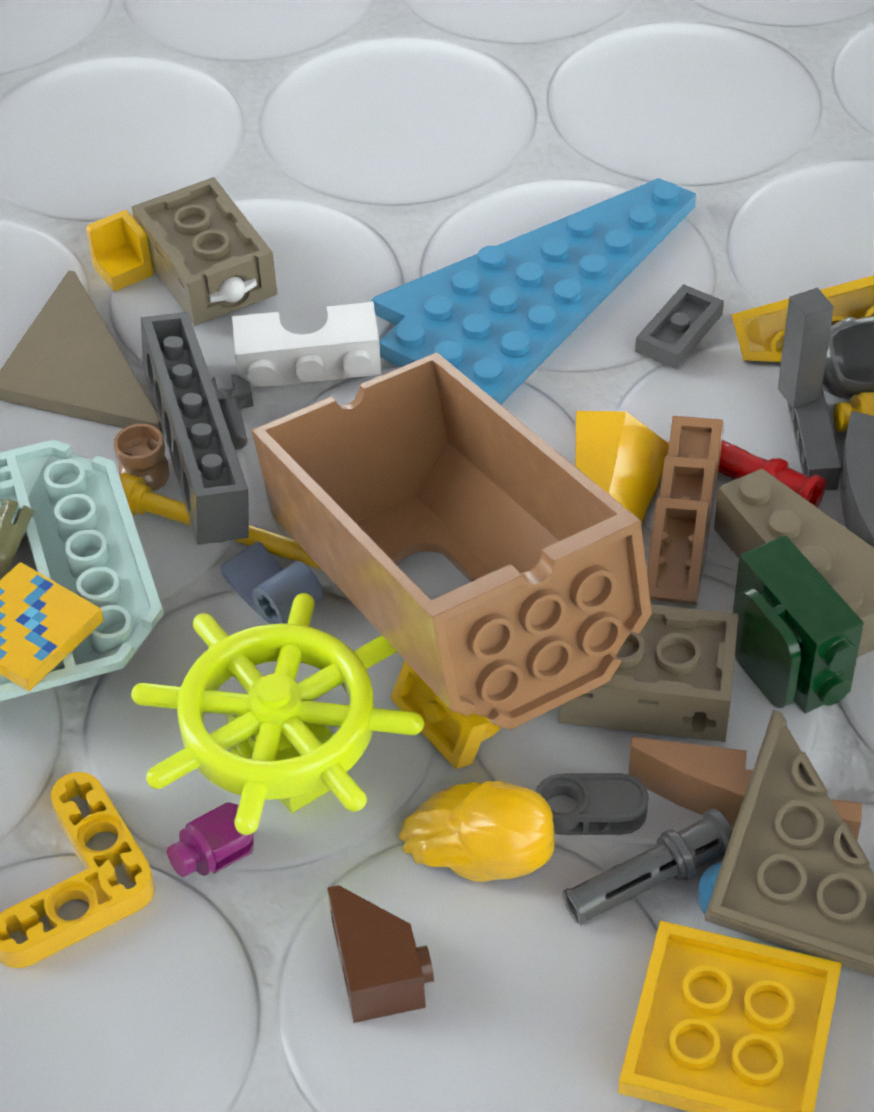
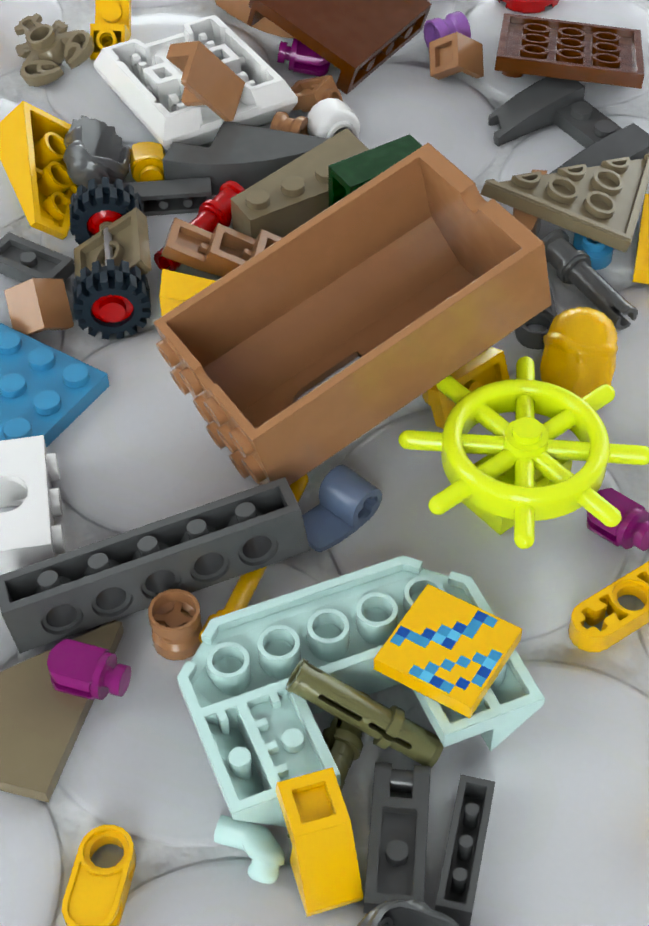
camera: 95 degrees left, 0 degrees up
(94, 395) = (87, 670): none -> magenta arm
(598, 338) = (39, 306): none -> medium nougat panel
(735, 377) = (111, 259): none -> plate
(805, 347) = (122, 146): dark grey piece -> none

